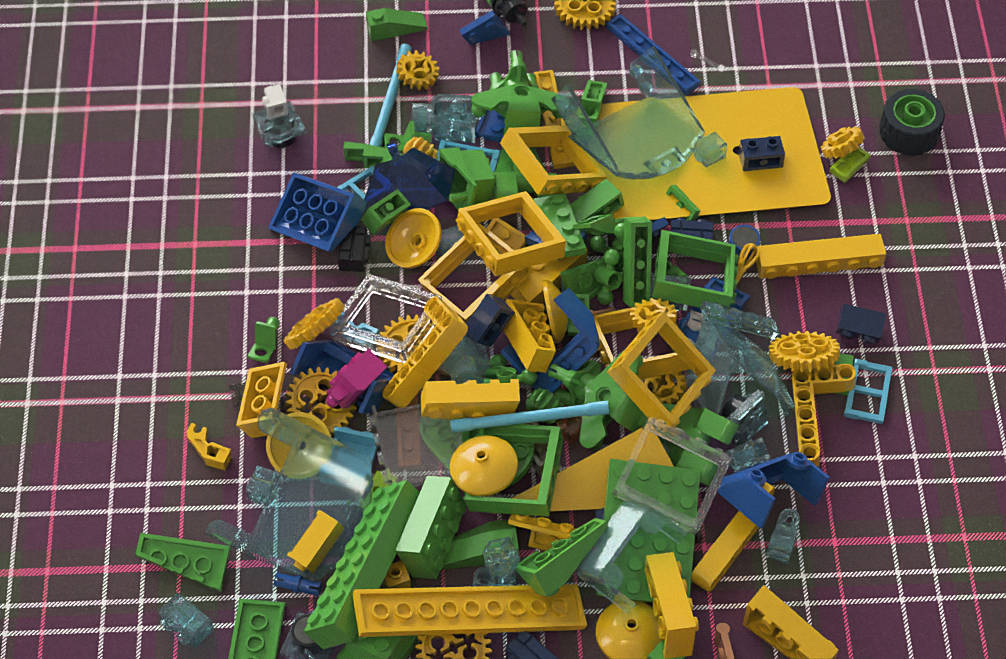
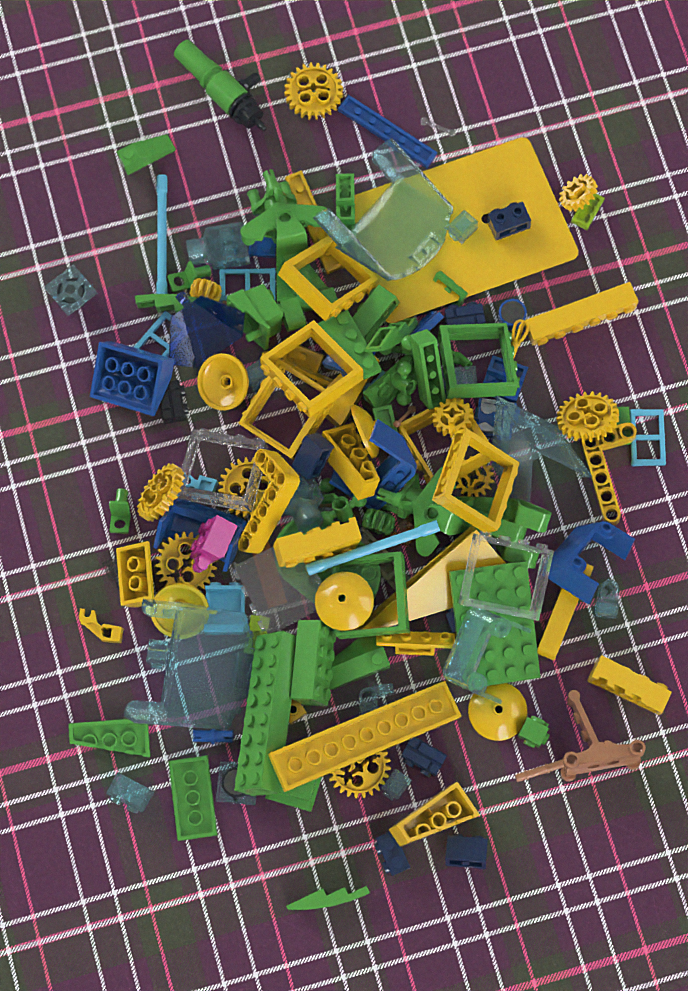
camera: 10 degrees left, 20 degrees up
(275, 102) = (61, 273): white brick -> none
(316, 542) = (219, 699): yellow brick -> none
(385, 212) = (192, 363): bright green brick -> none
(417, 70) = (185, 207): yellow gear -> none
(484, 29) = (229, 141): blue wing -> none
(501, 557) = (379, 679): clear light blue brick -> none
(553, 568) = (426, 674): bright green wedge -> none
(671, 604) = (529, 688): yellow wedge -> none
(739, 320) = (526, 400): clear light blue plate -> none
(747, 413) = (549, 490): clear light blue piece -> none
(748, 454) = (561, 531): clear light blue brick -> none
(860, 323) = (629, 375): dark blue brick -> none
(911, 121) = (635, 155): black wheel -> none

